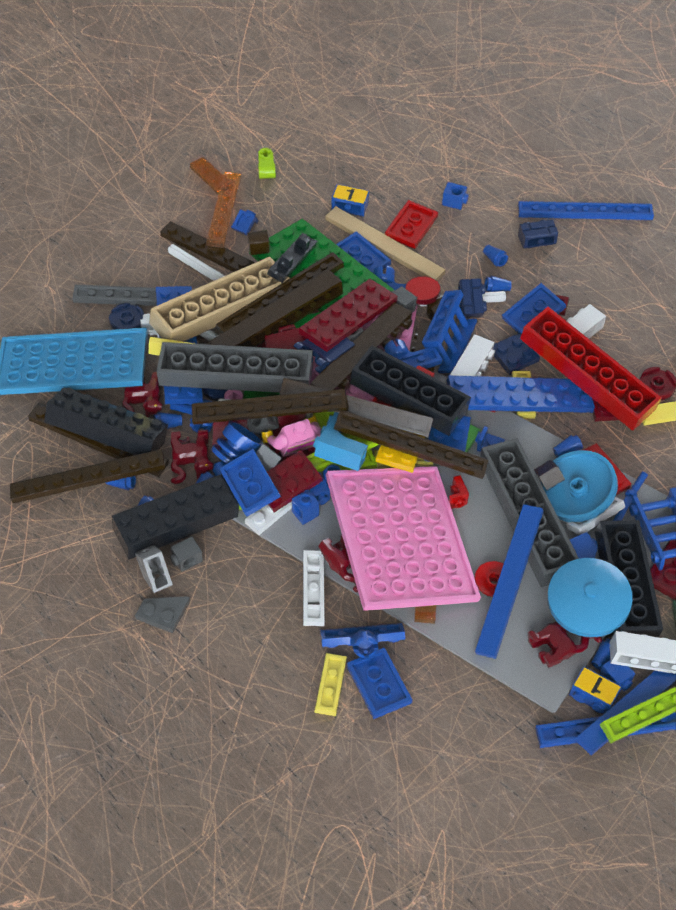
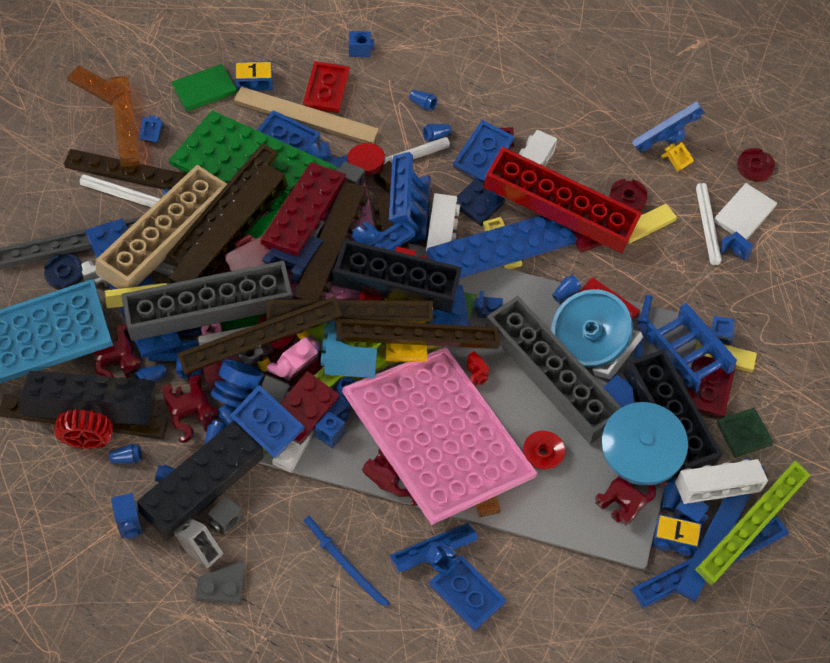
camera: 20 degrees left, 5 degrees up
(87, 476) = (89, 462): dark brown plate -> none
(90, 446) = (83, 429): none -> red gear
(100, 528) = (127, 516): none -> blue brick
(258, 242) = (178, 151): dark brown piece -> none
(266, 164) = (150, 57): lime piece -> none
(268, 603) = (326, 542): none -> blue sword
(292, 258) = (221, 160): black hinge -> none
(303, 199) = (204, 87): none -> green tile
(313, 588) = (368, 513): white hinge -> none
(330, 684) = (419, 608): light yellow tile -> none
(472, 301) = (418, 146): dark blue brick -> none
(509, 582) = (561, 449): blue tile -> none
(537, 233) = (458, 64): dark blue brick -> none
(549, 475) = (561, 325): piece -> none
(582, 210) = (495, 26): blue tile -> none

